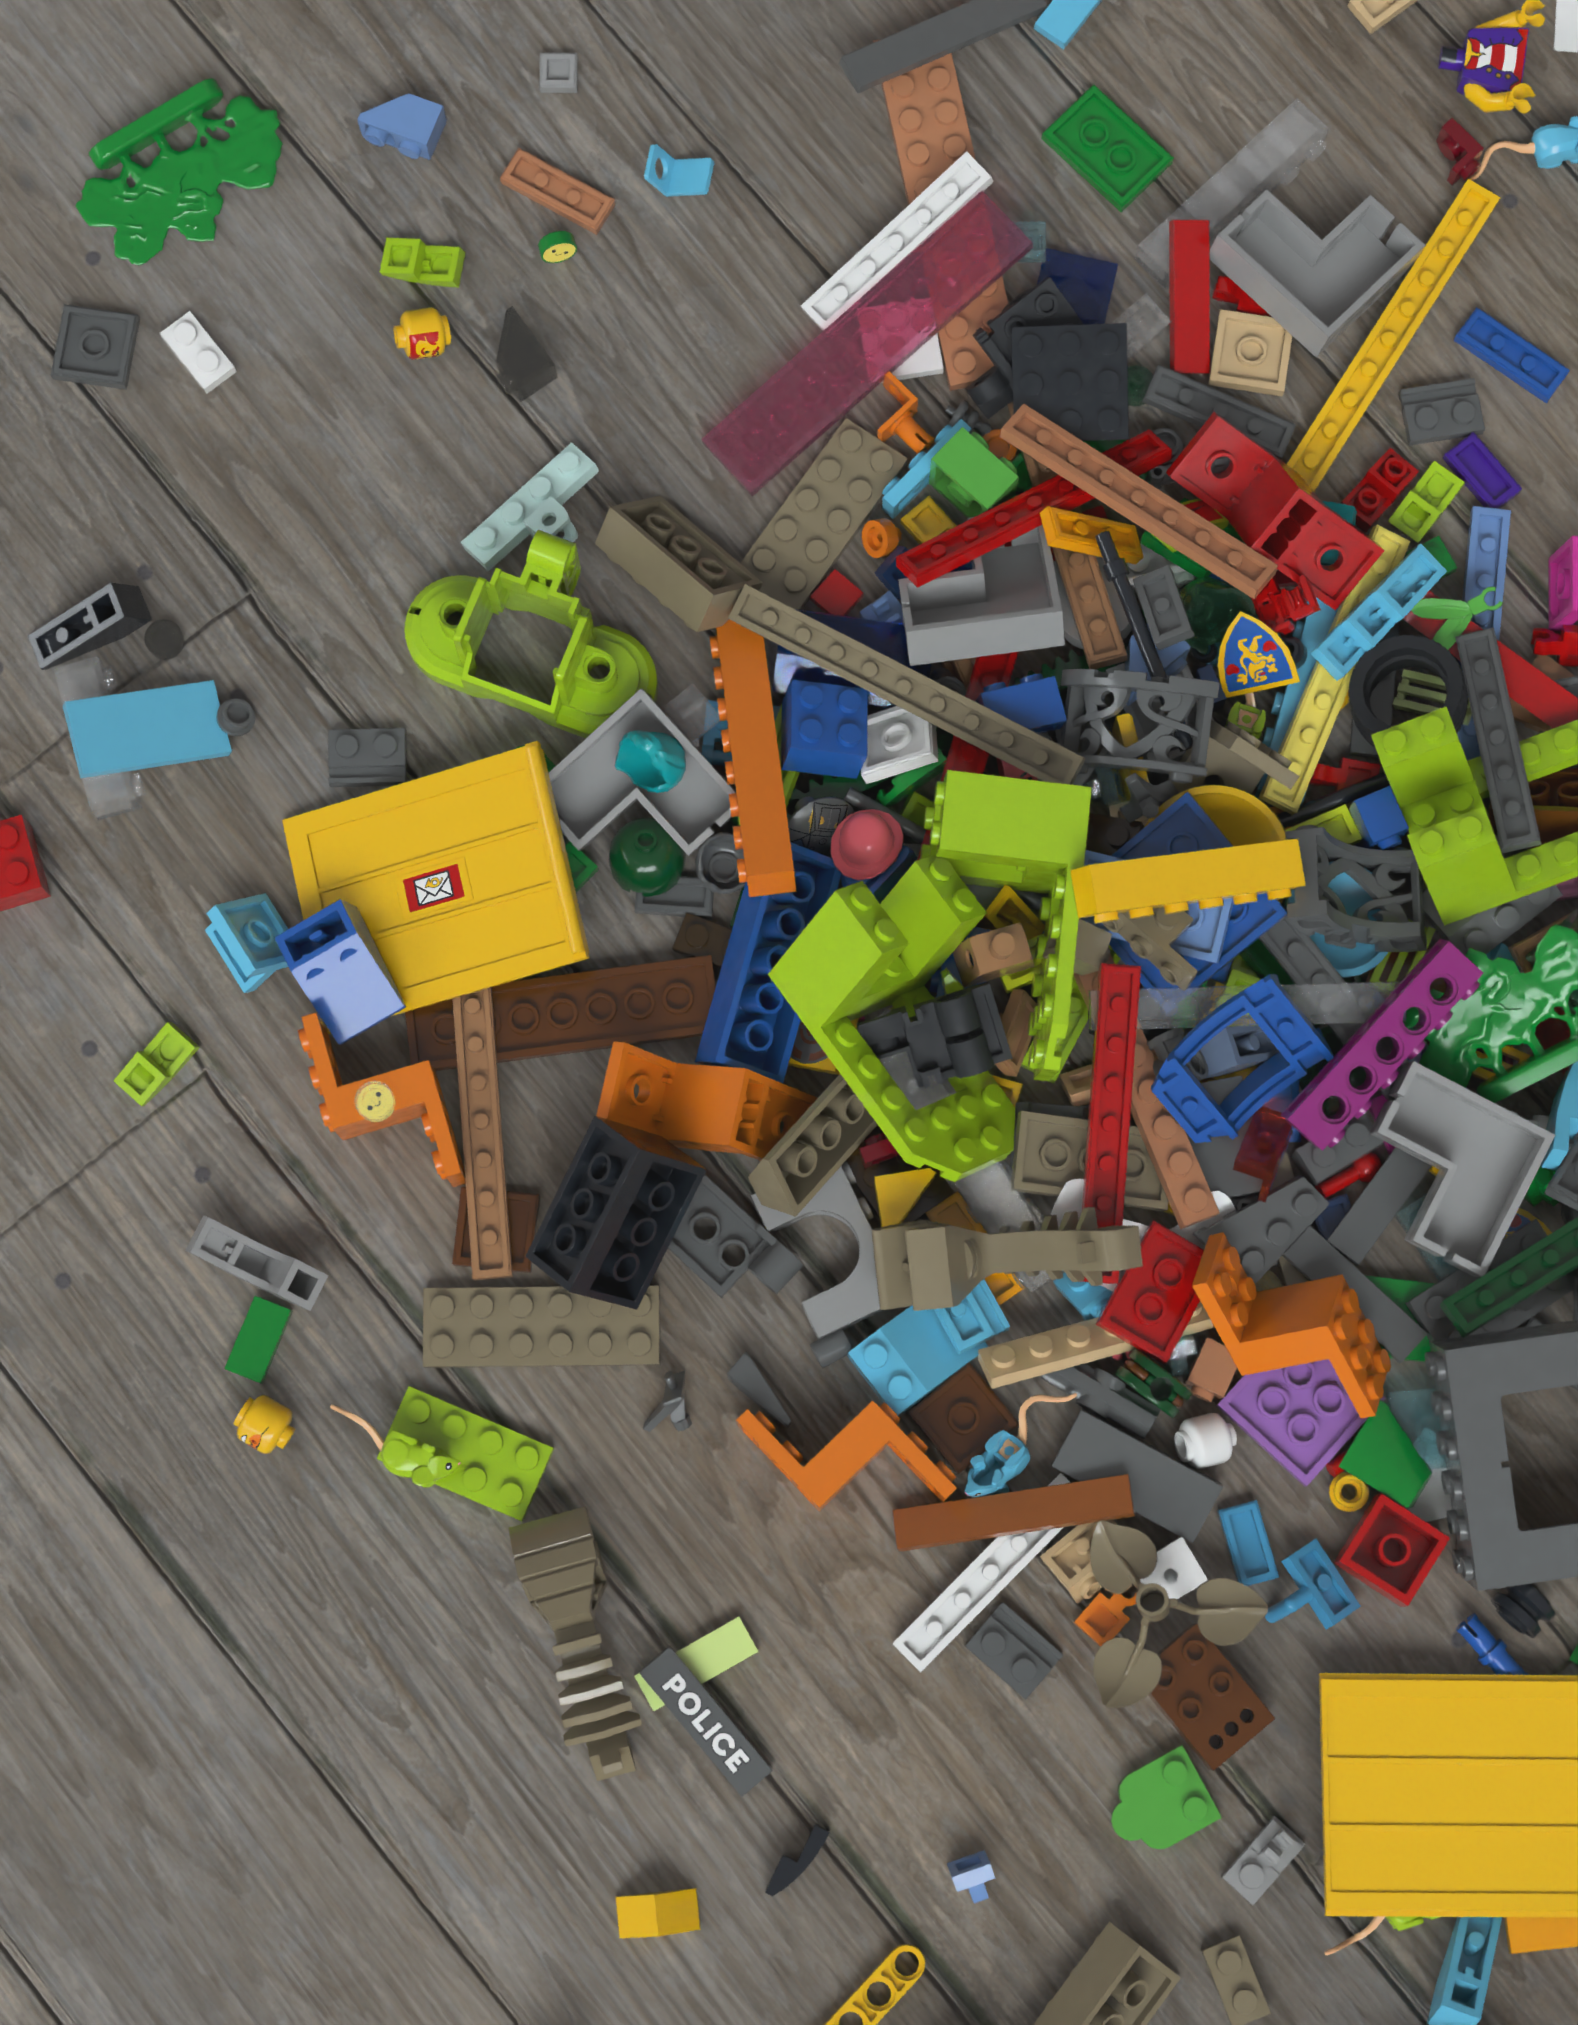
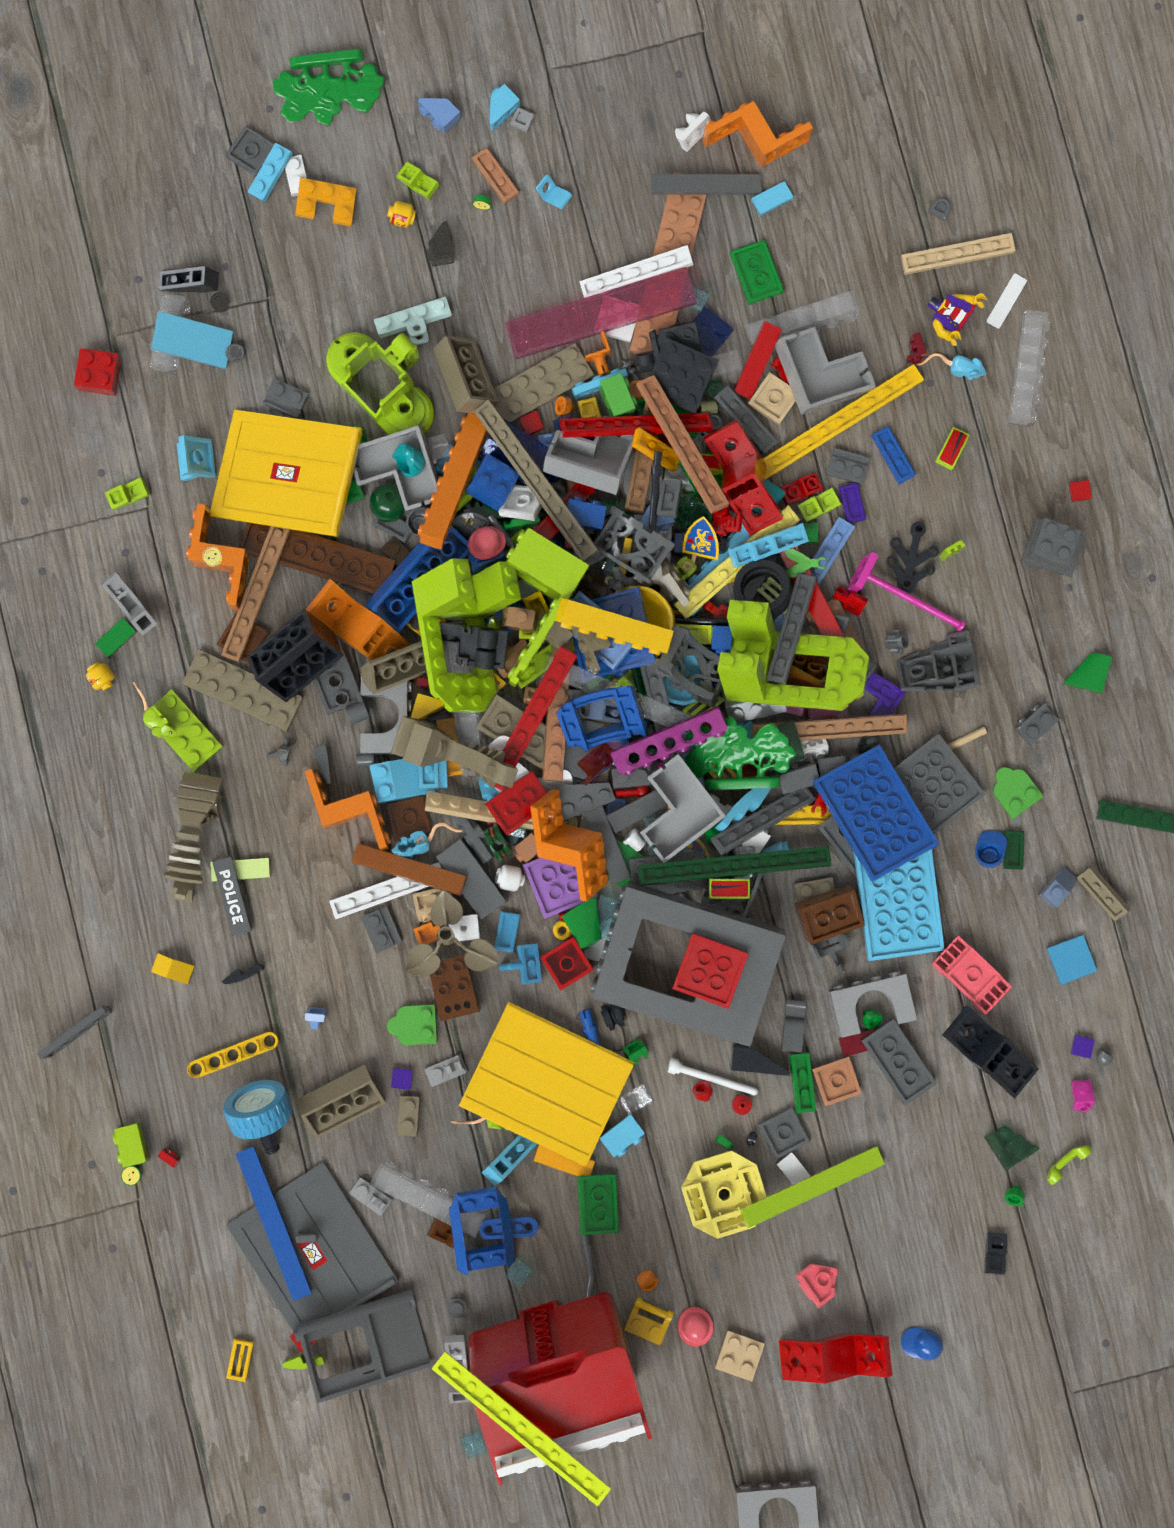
camera: 15 degrees right, 5 degrees up
(148, 367) = (270, 172): none -> medium azure plate
(245, 363) = (315, 191): none -> light orange plate
(341, 970) = (226, 490): slope -> none
(511, 62) = (502, 105): none -> medium azure slope
(1144, 418) = (708, 406): none -> olive piece
(1189, 1916) = (401, 1078): none -> dark purple tile
(1399, 1261) = (634, 840): none -> white piece

